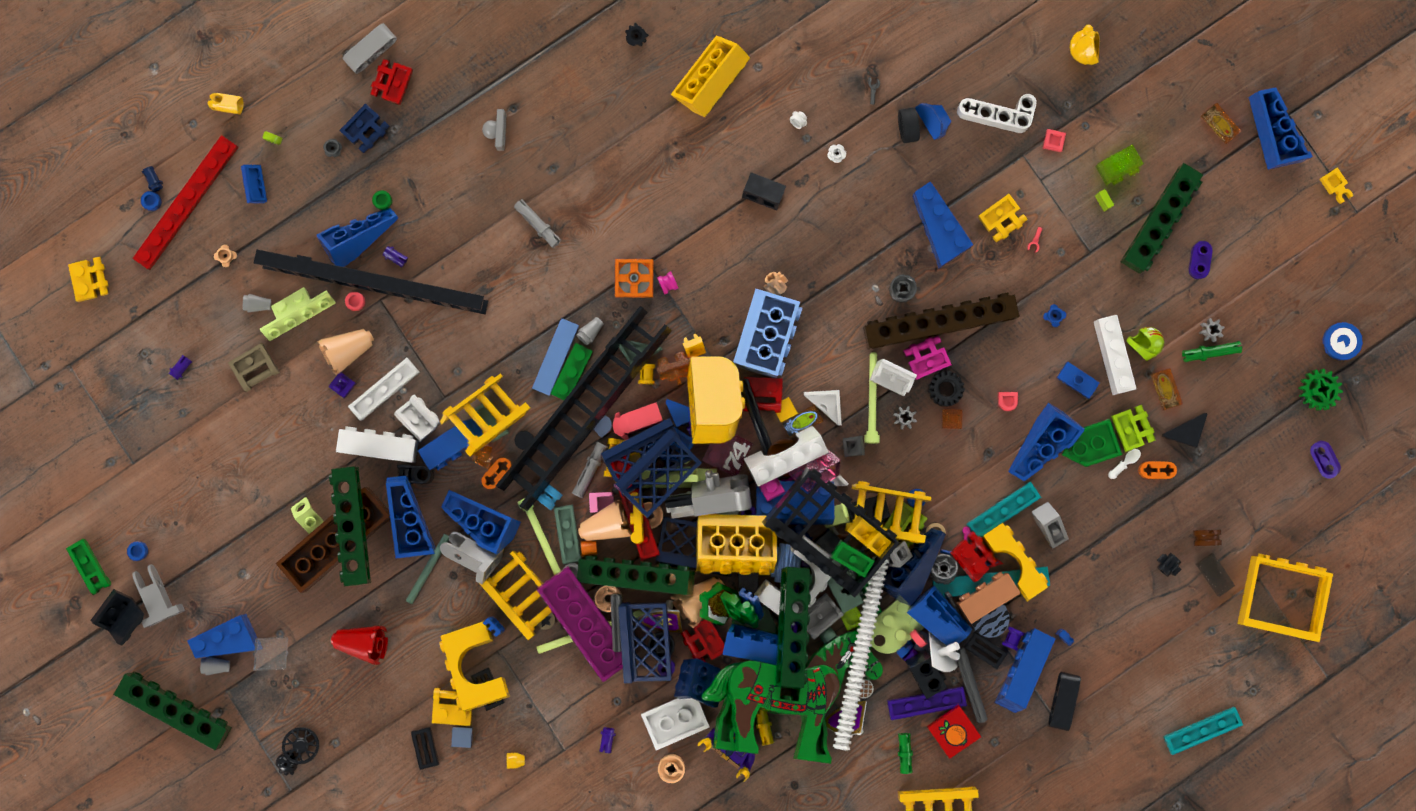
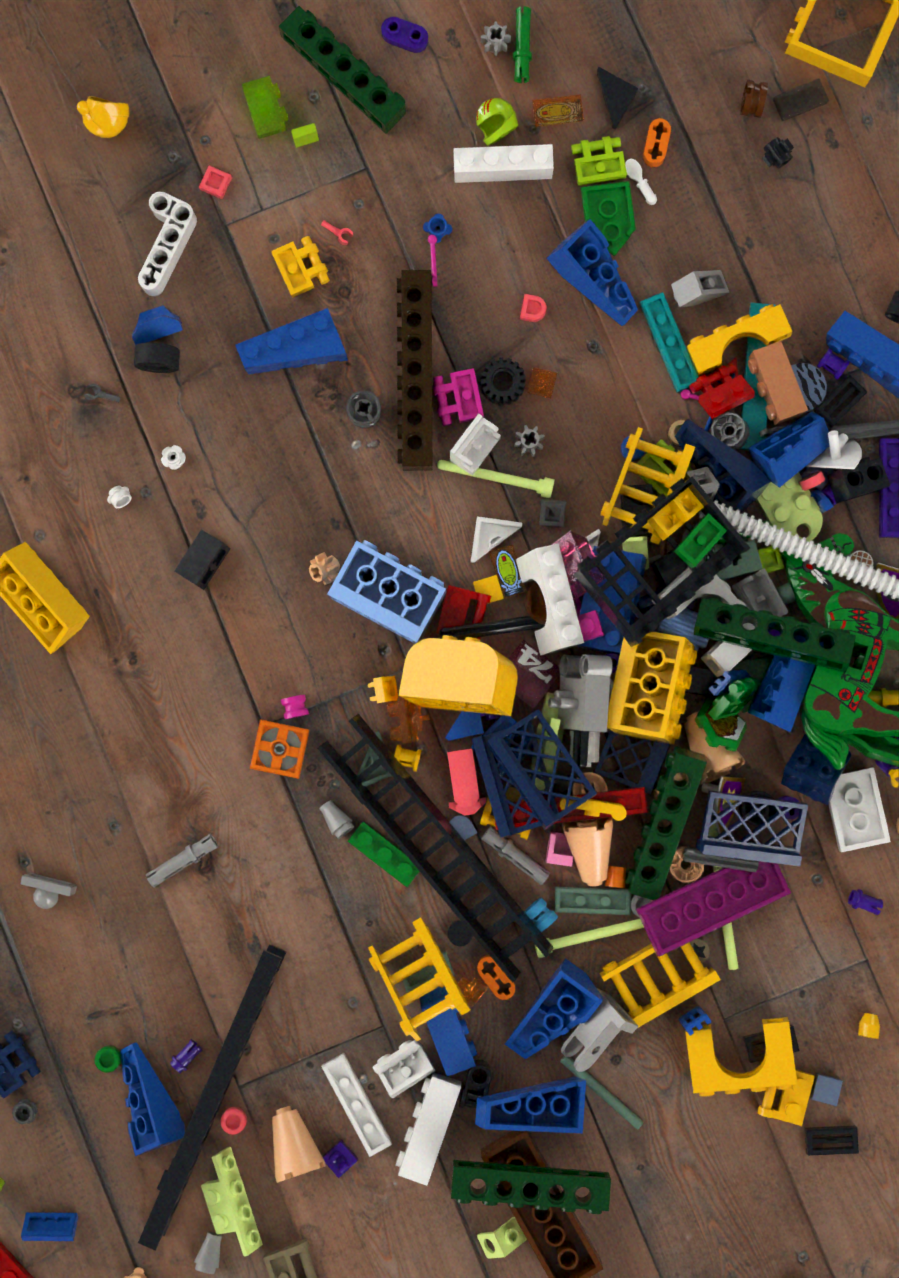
camera: 75 degrees left, 0 degrees up
(363, 643) = (682, 1197): red cone -> none
(555, 356) = (360, 871): medium blue tile -> none
(709, 637) = (760, 745): red plate -> none
(1044, 313) = (432, 239): none -> dark pink hinge
(1064, 636) = (842, 299): blue tile -> none
(1078, 380) = (524, 216): blue plate -> none

